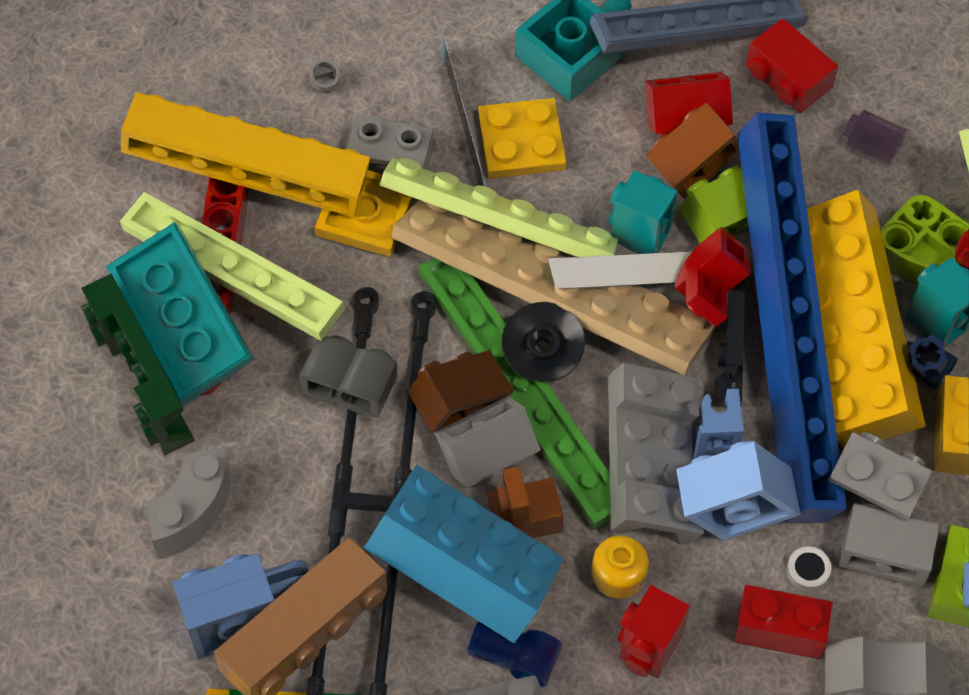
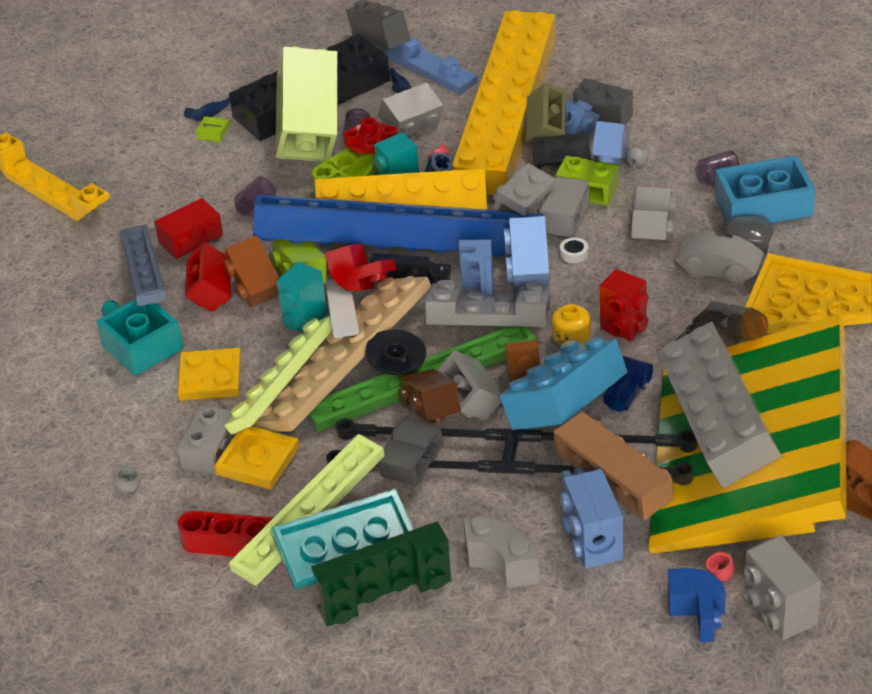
camera: 80 degrees left, 20 degrees down
(244, 153) = (205, 503): yellow brick -> none
(462, 114) = (183, 400): black sticker -> none
(783, 622) = (614, 251): red brick -> none

